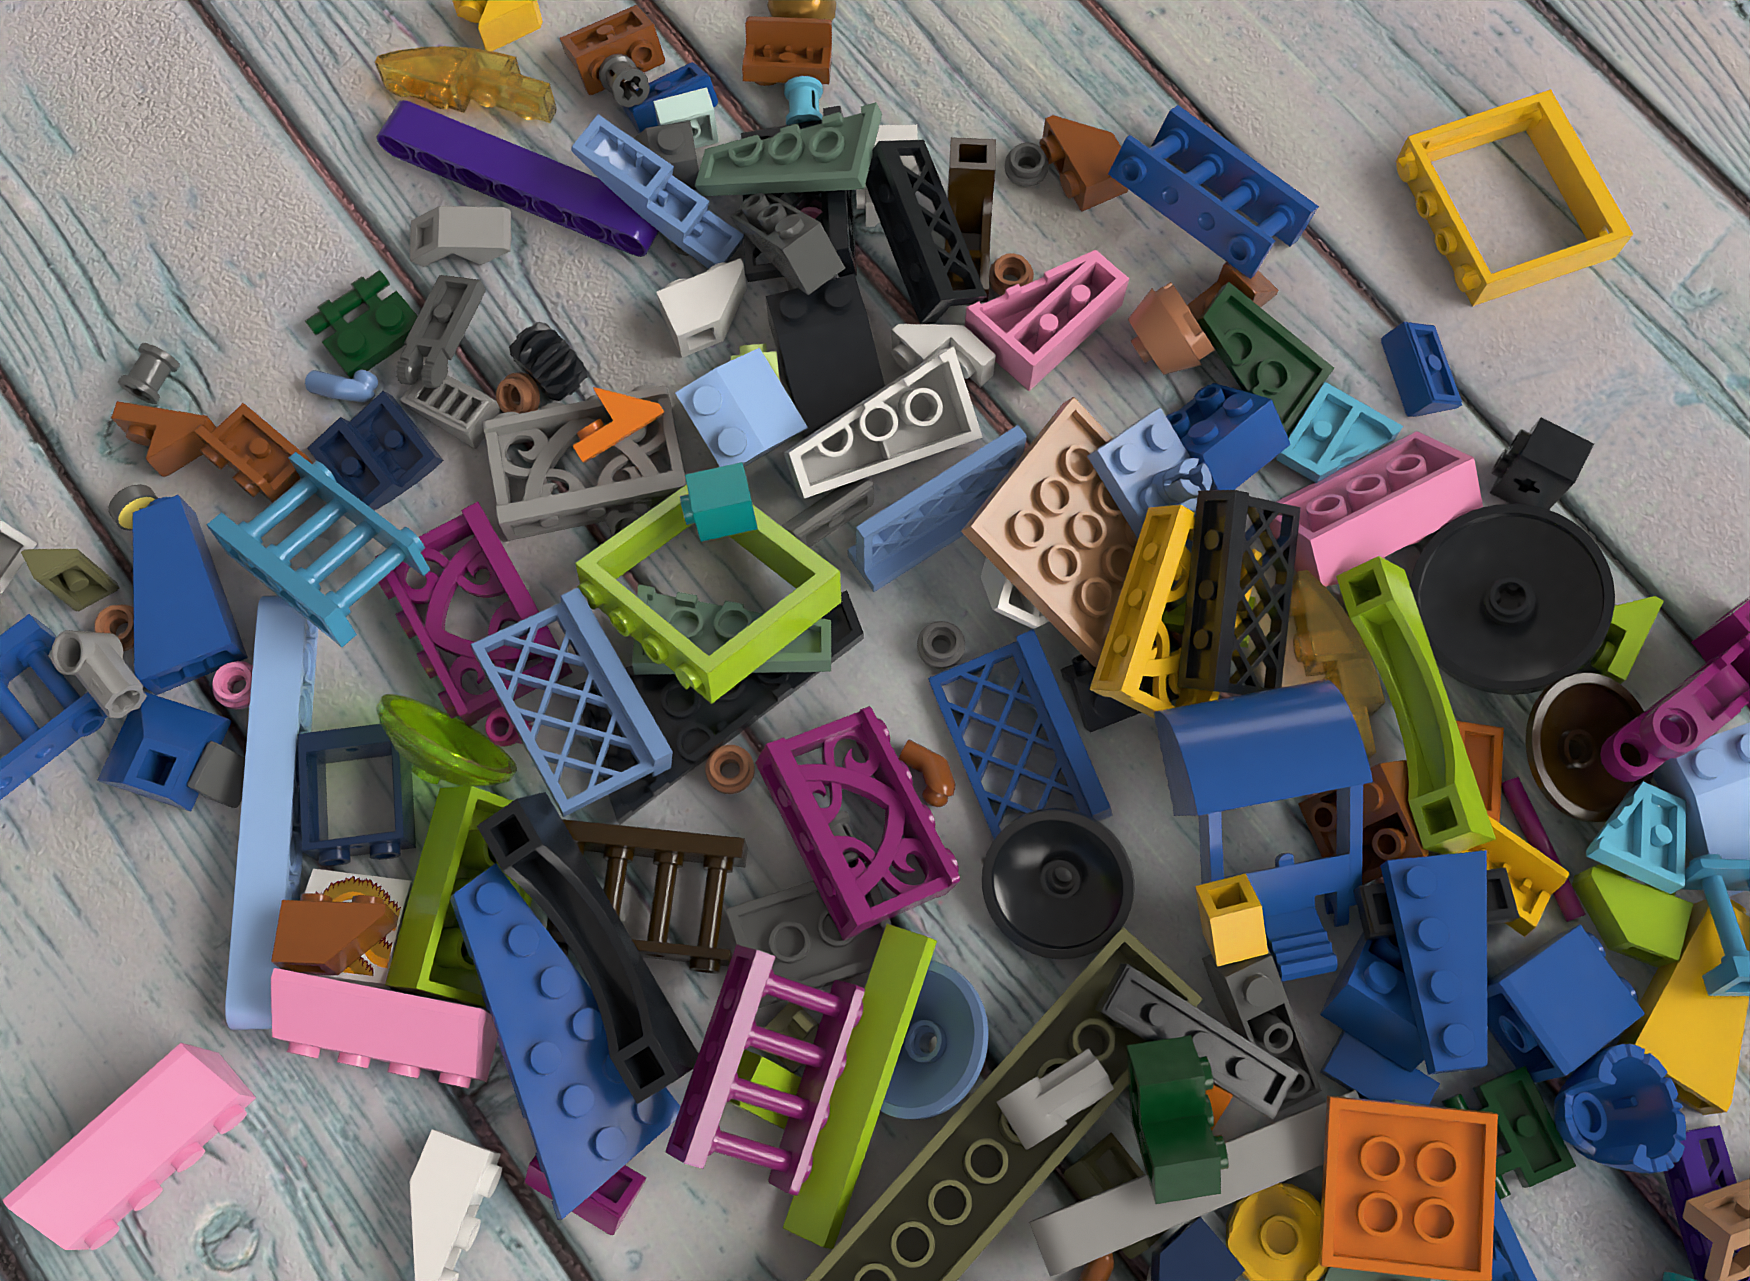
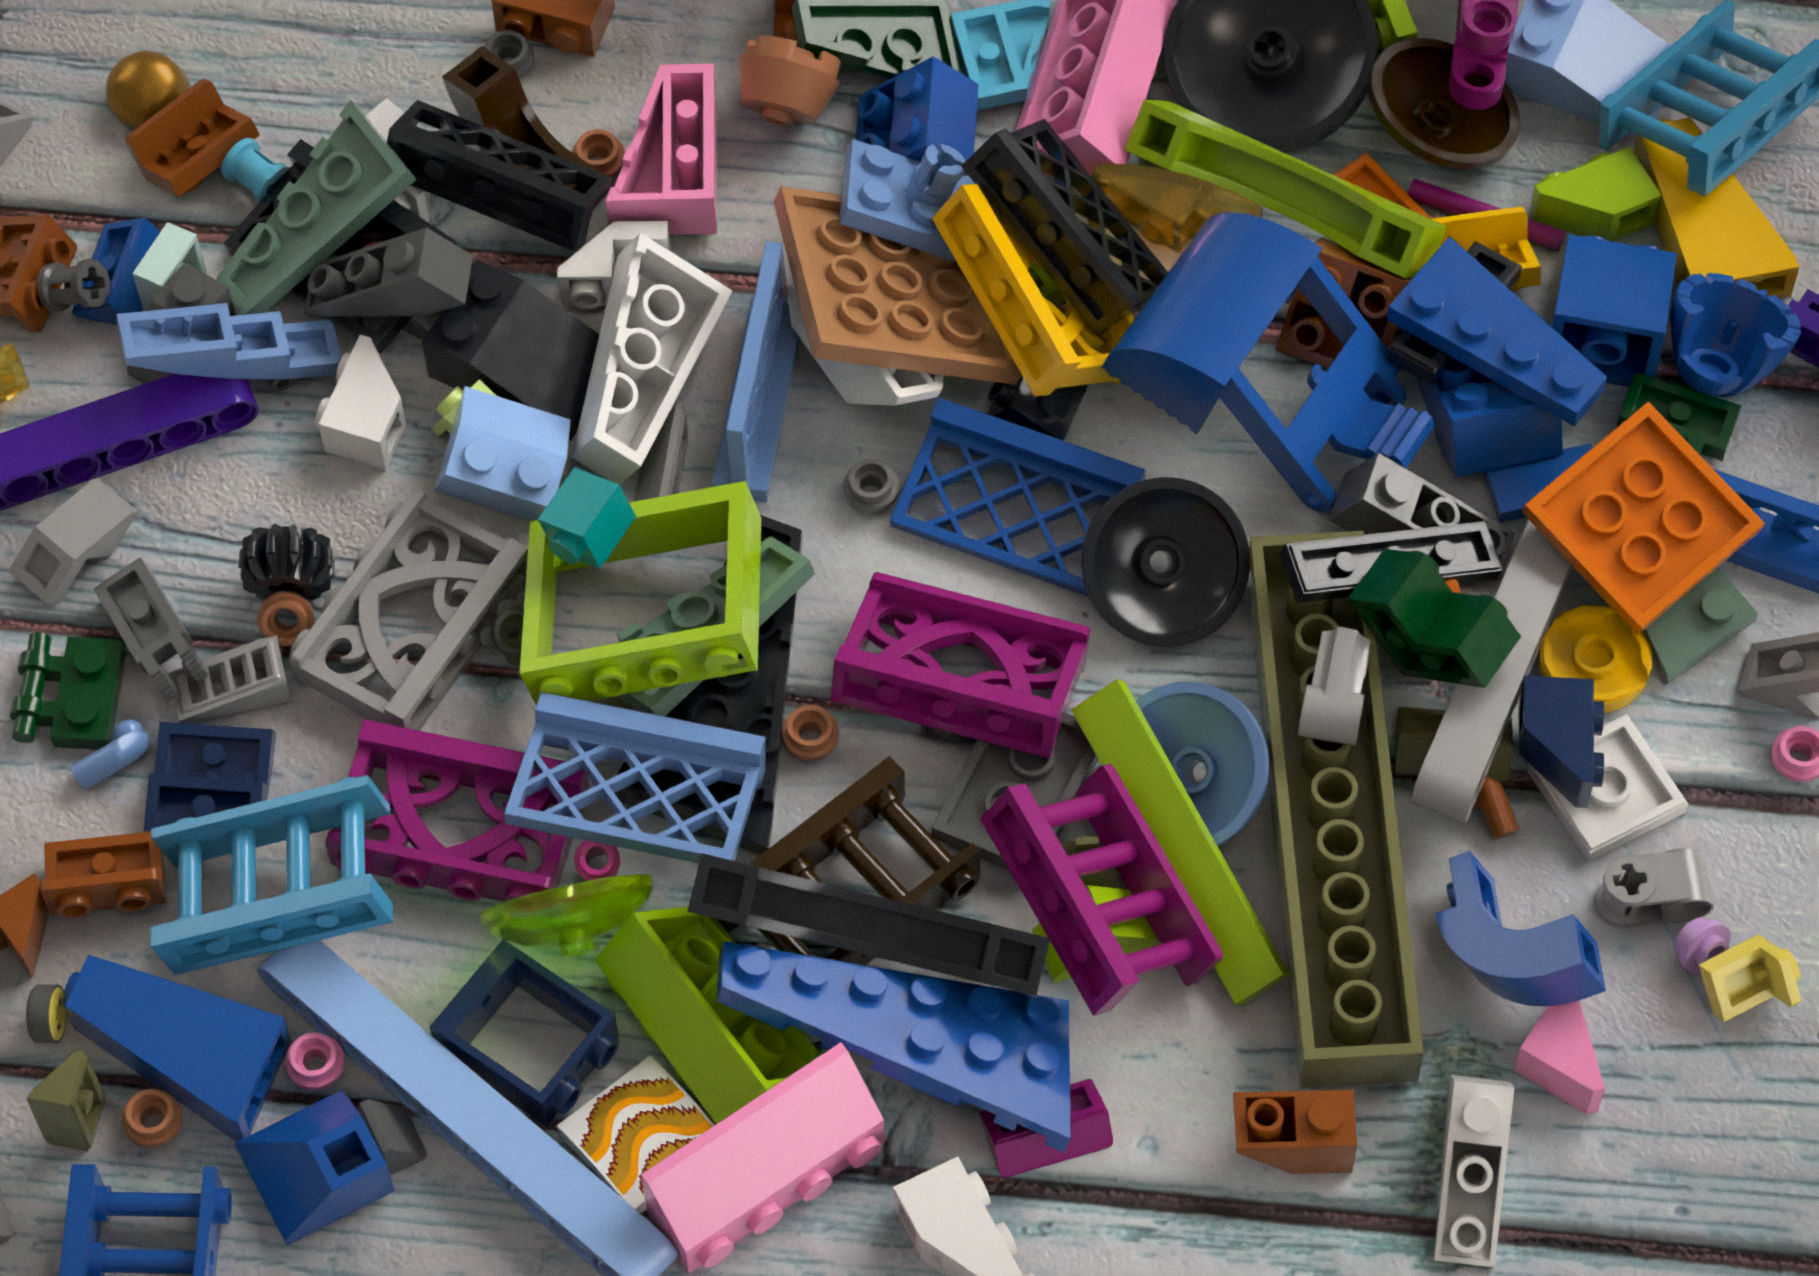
camera: 45 degrees left, 10 degrees down
(100, 668) = (200, 1140): light grey piece -> none
(329, 935) = (637, 1131): dark orange slope -> none
(628, 417) = (417, 541): orange slope -> none
(934, 770) = (974, 580): dark orange arm -> none
(1231, 919) = (1323, 454): yellow brick -> none
(1645, 838) = (1550, 130): medium azure wing -> none

